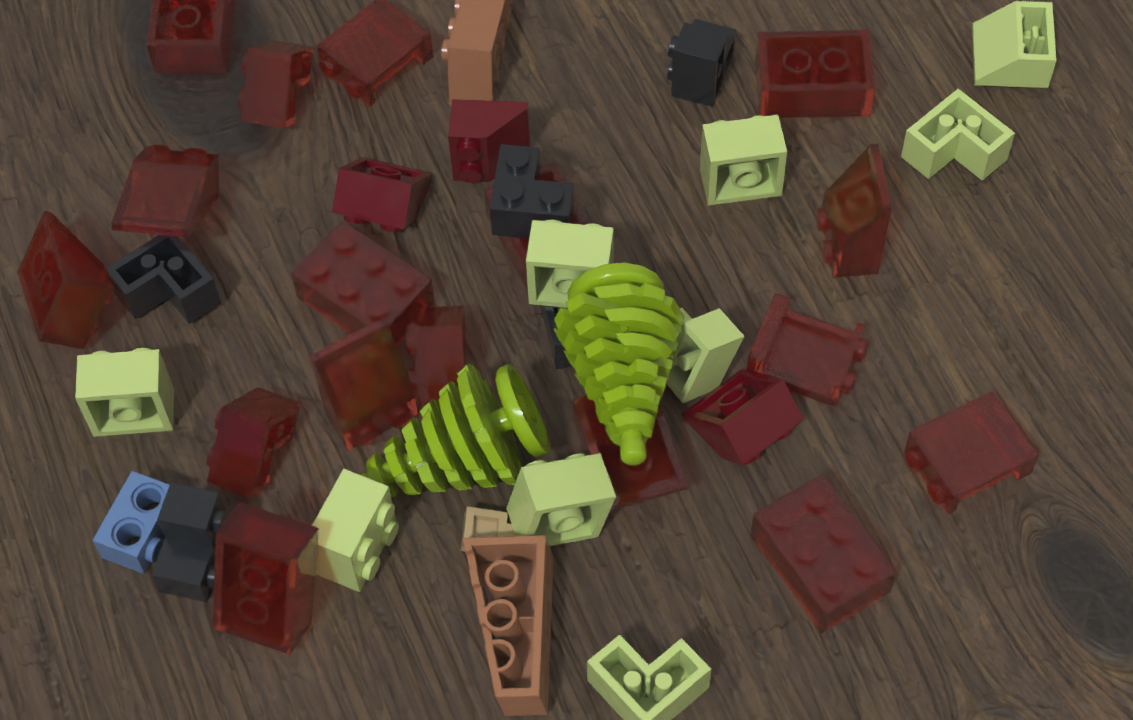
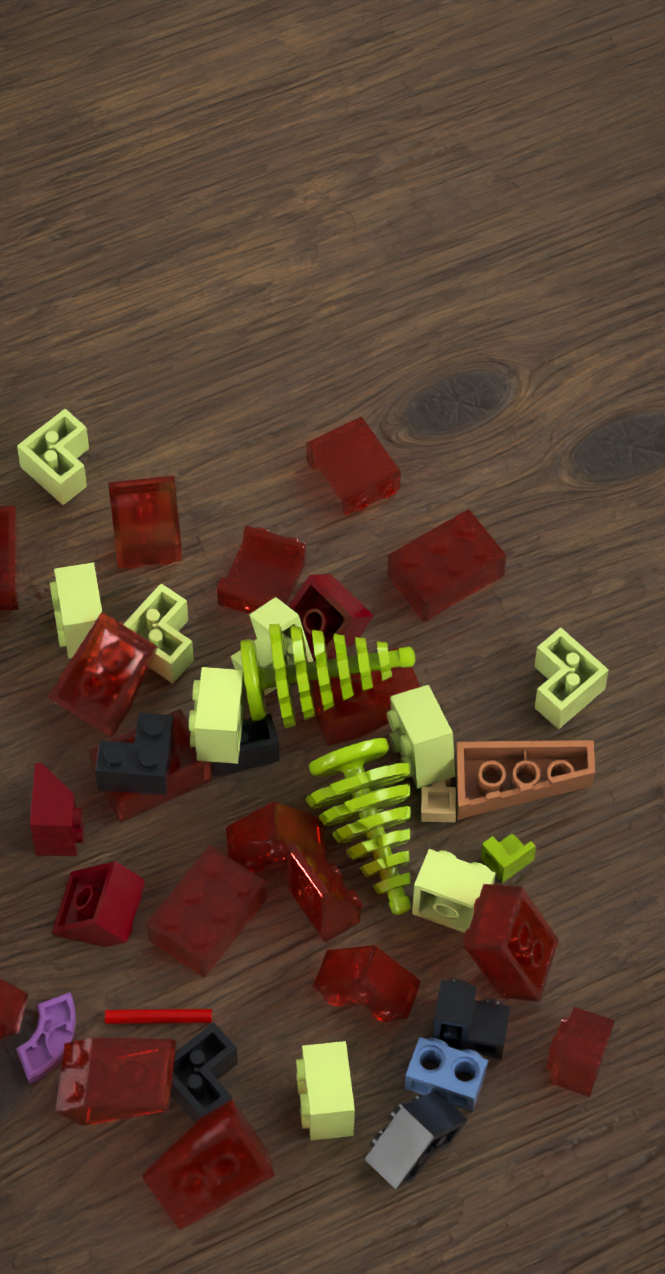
camera: 95 degrees left, 0 degrees up
(58, 476) = (413, 1136): none -> brick
(134, 666) = (579, 1050): none -> clear red brick
(245, 159) = (46, 1045): none -> medium lavender tile
(253, 252) = (158, 1016): none -> red bar
(411, 605) = (507, 856): none -> lime panel
(643, 174) = (104, 675): none -> clear red slope
(715, 232) = (159, 622): none -> yellowish green brick

